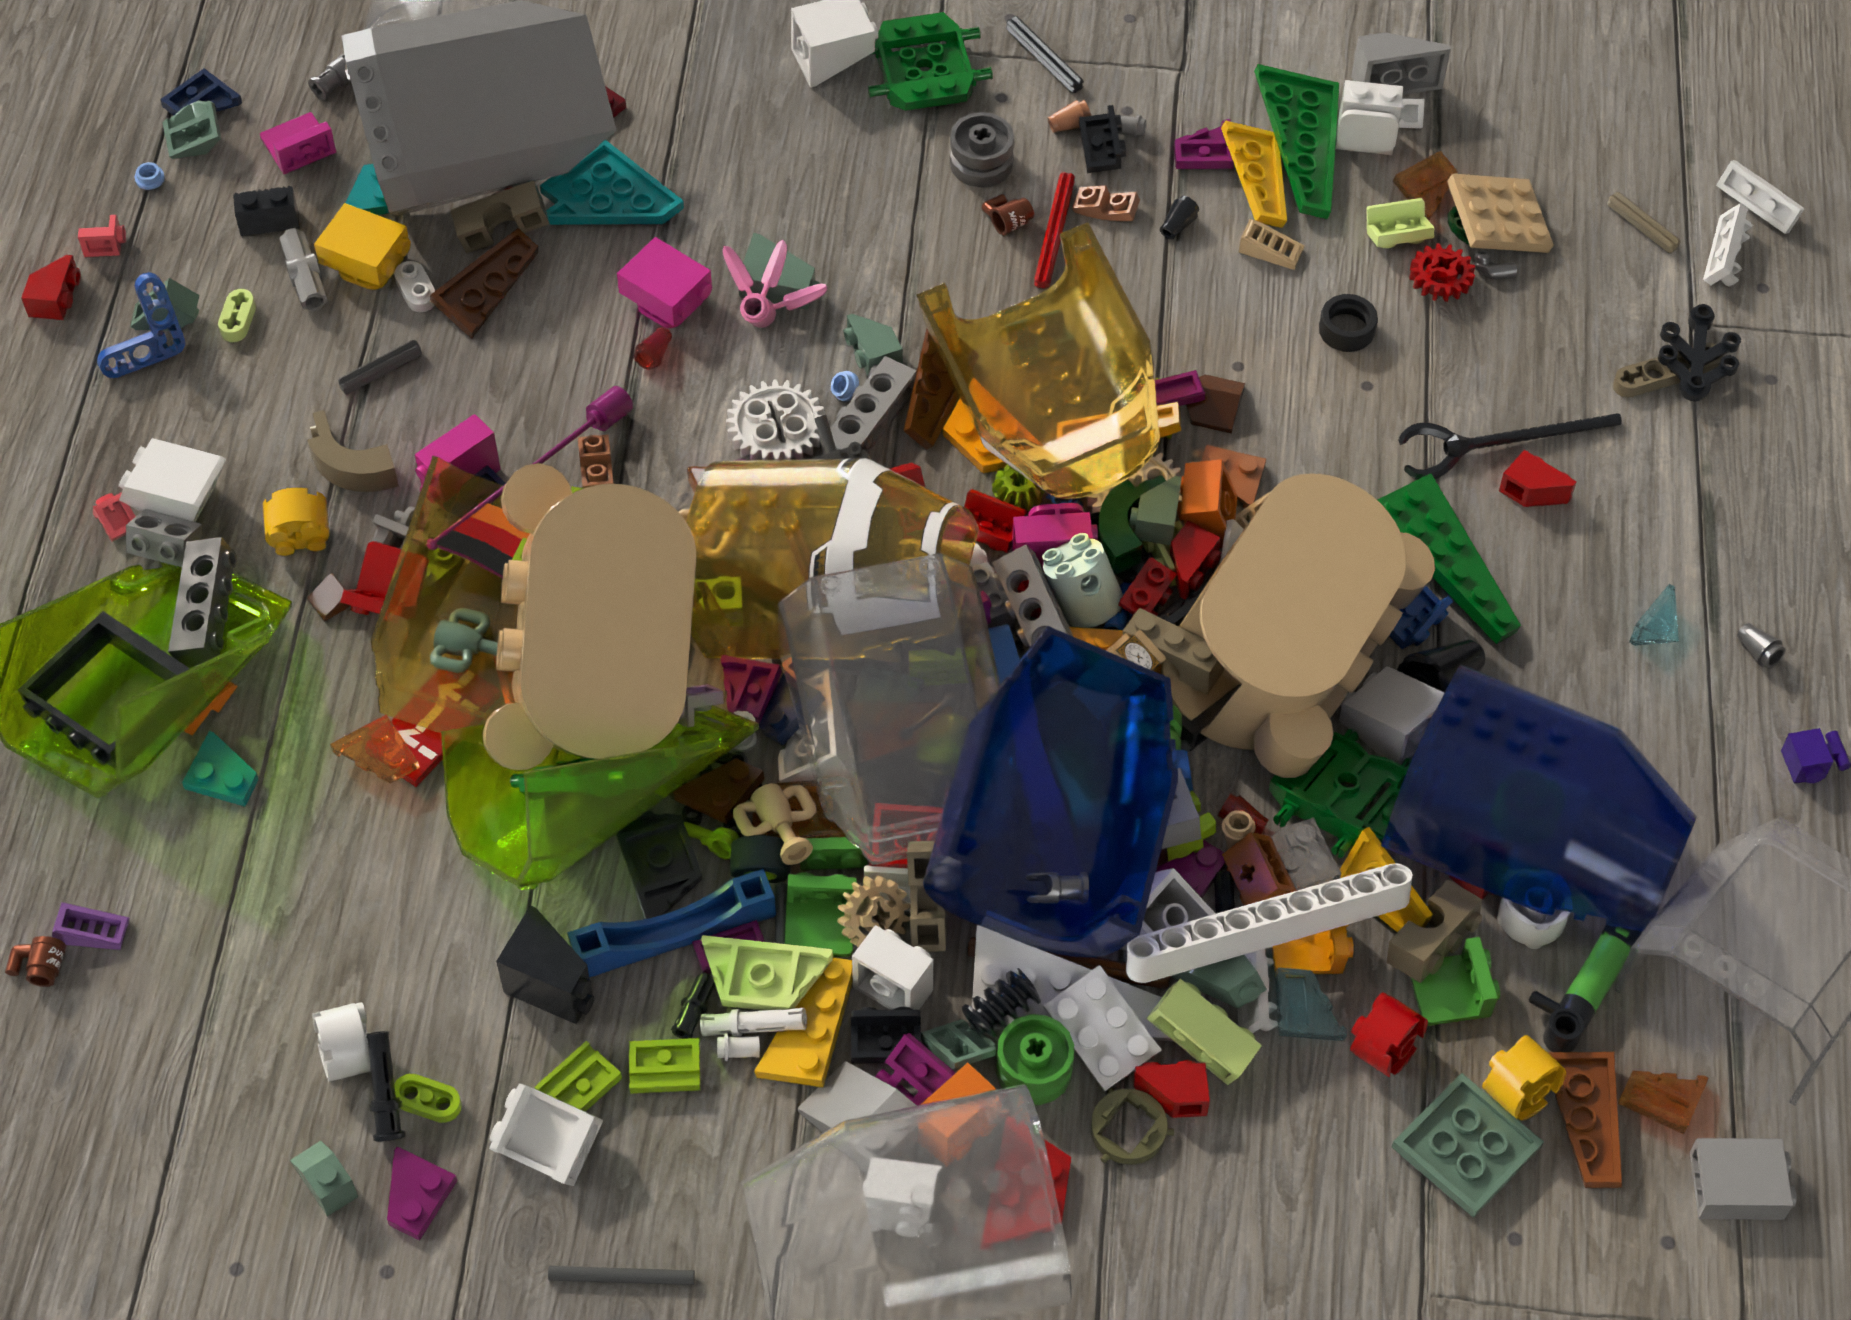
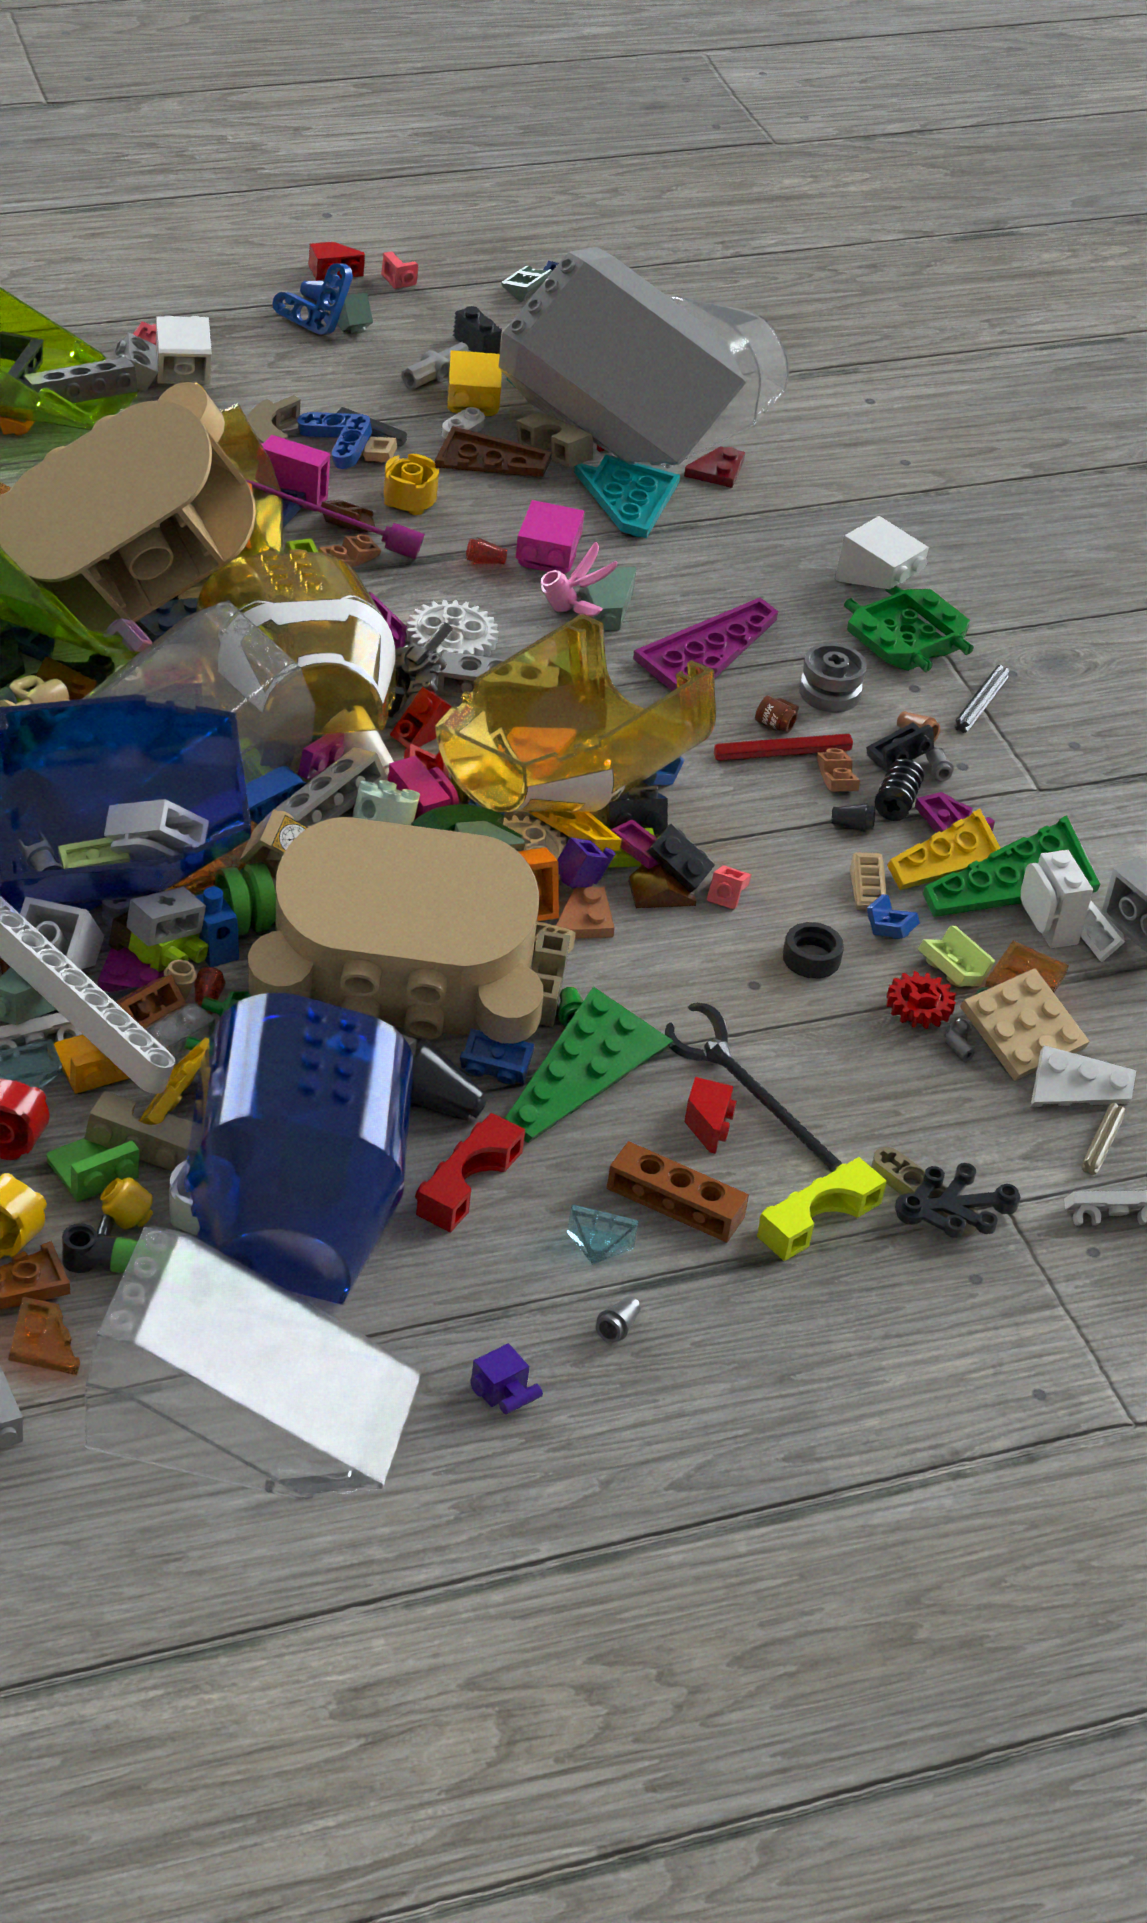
camera: 60 degrees right, 15 degrees down
(101, 323) = (312, 290): none -> blue cone
(149, 176) = (474, 278): light blue plate -> none
(242, 316) = (373, 350): yellowish green beam -> none
(387, 389) = (341, 426): none -> blue beam
(427, 375) = (379, 449): none -> tan plate
(516, 366) = (411, 483): none -> yellow brick
(529, 440) = (349, 510): none -> reddish brown slope
(887, 233) = (709, 643): none -> magenta wing
(1081, 841) = (90, 854): none -> yellowish green bracket
(1095, 771) = (153, 829): none -> white brick
(1159, 169) = (899, 789): none -> black piece
(1192, 442) = (583, 863): none -> dark purple brick
(1206, 367) = (680, 857): none -> black bracket
(1239, 346) = (727, 886): none -> coral bracket
(1333, 249) = (890, 922): none -> blue bracket
(1522, 973) = (127, 1203): none -> yellow head
(1526, 659) = (490, 1147): none -> red arch
(1576, 208) = (1073, 1078): none -> white wing
(1624, 543) = (677, 1191): none -> dark orange brick
(1687, 478) = (849, 1189): none -> neon yellow arch

